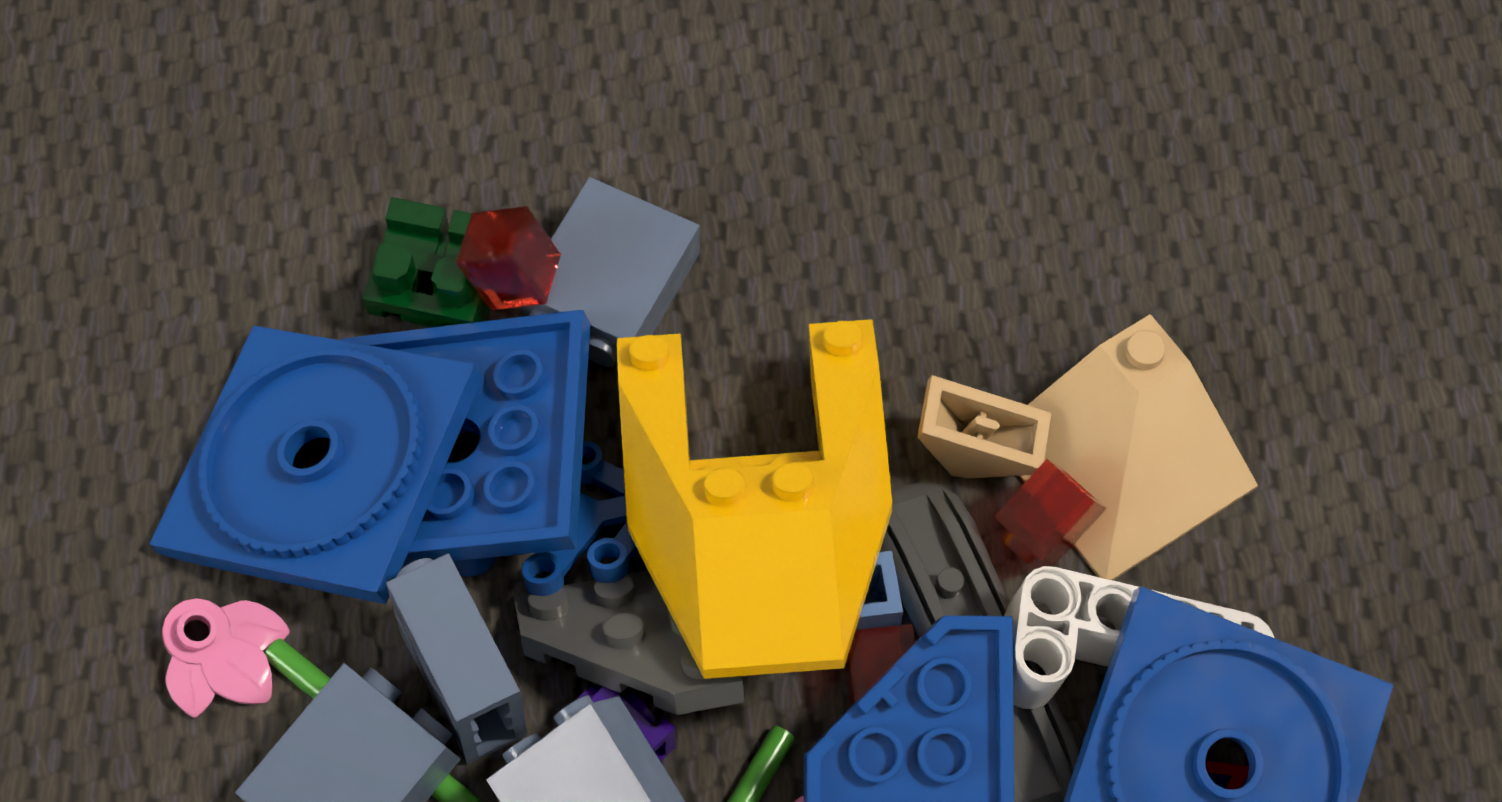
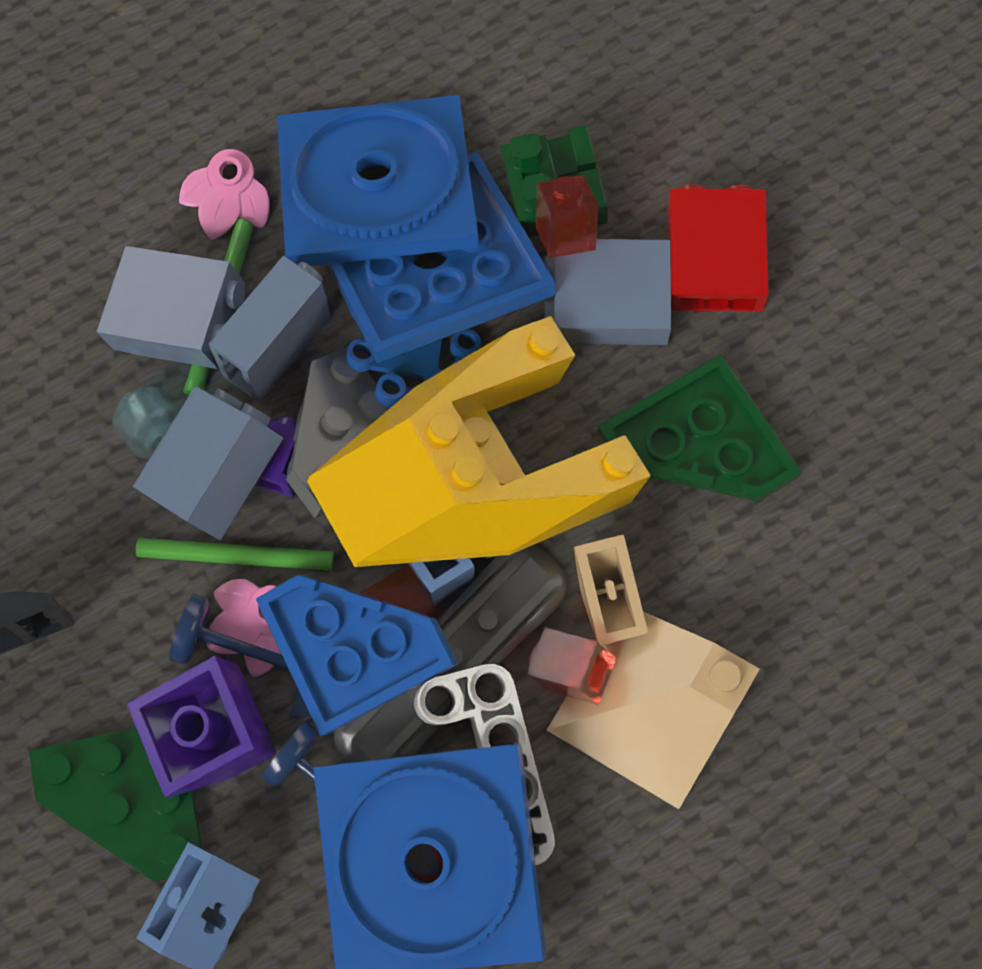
camera: 70 degrees right, 10 degrees up
(617, 134) = (717, 248): none -> red brick
(835, 257) = (706, 436): none -> dark green plate

